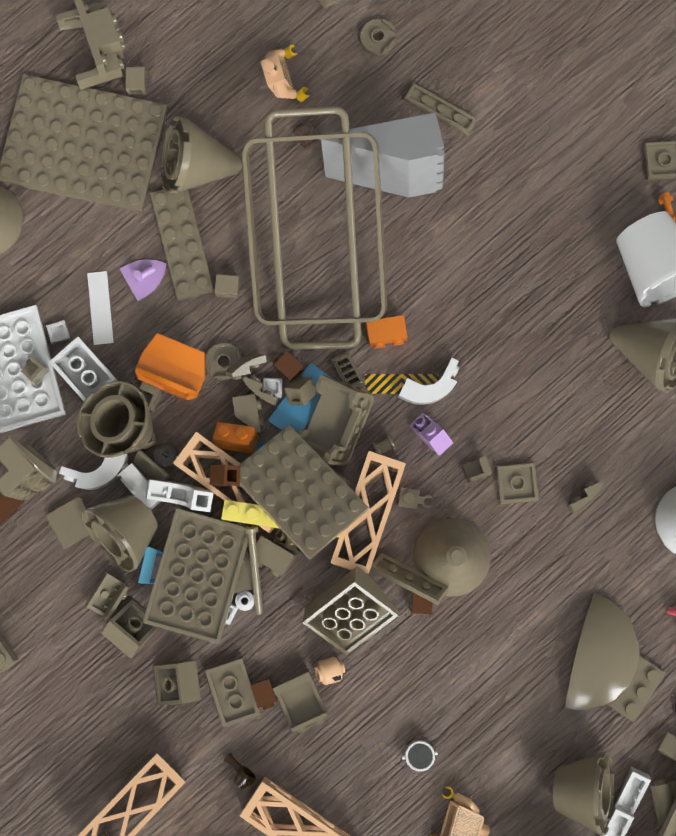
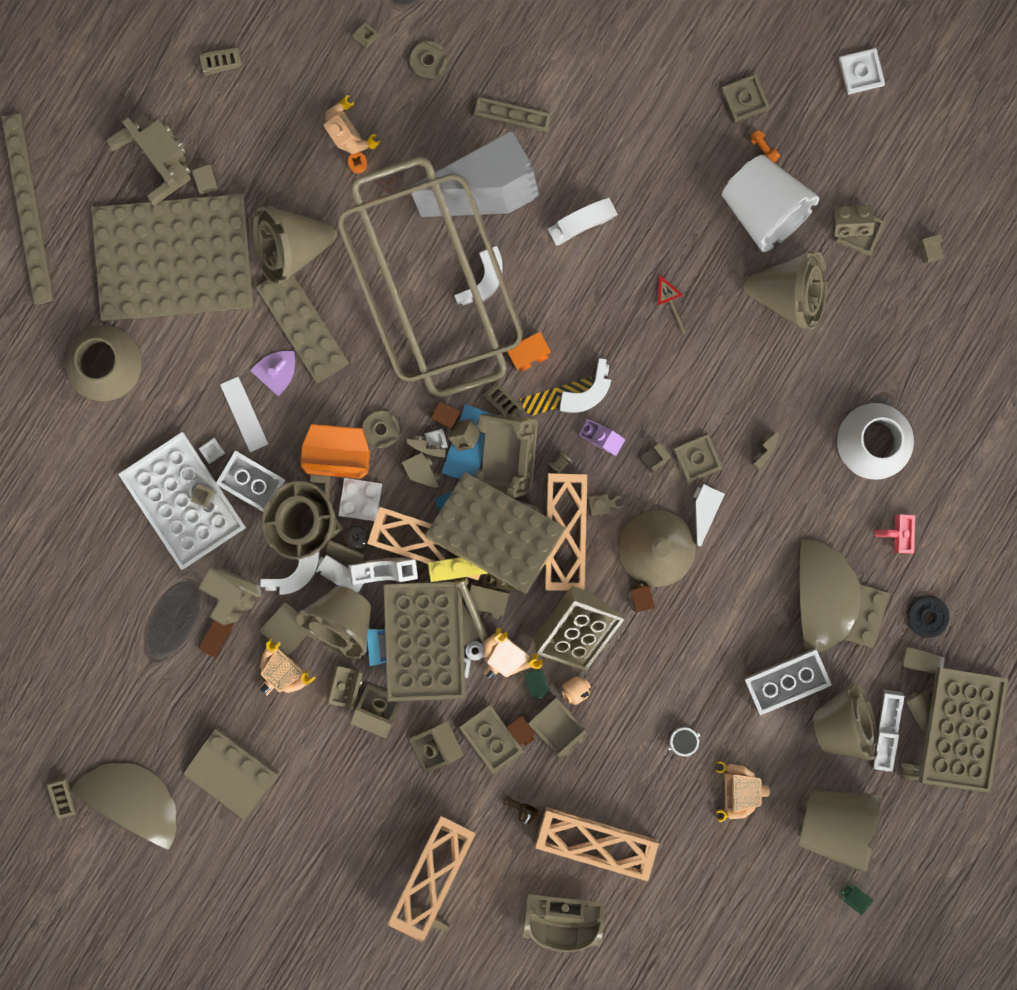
camera: 25 degrees left, 5 degrees up
(52, 561) = (281, 671): none -> light nougat torso
(182, 420) = (360, 499): none -> white plate
(224, 475) = (421, 540): reddish brown brick -> none
(227, 286) = (361, 355): dark tan panel -> none
(235, 437) = (417, 499): orange brick -> none
(243, 366) = (402, 428): dark tan slope -> none
(272, 615) = (506, 656): none -> light nougat torso
(281, 102) = (359, 165): none -> orange wheel
(294, 652) = (537, 684): none -> clear green brick
(369, 256) = (489, 282): none -> white arch
(409, 578) = (624, 581): dark tan plate -> none
(476, 222) = (582, 220): none -> white arch
(510, 533) = (705, 508): none -> white slope
(536, 318) = (667, 293): none -> piece
(540, 728) = (787, 681): none -> white brick

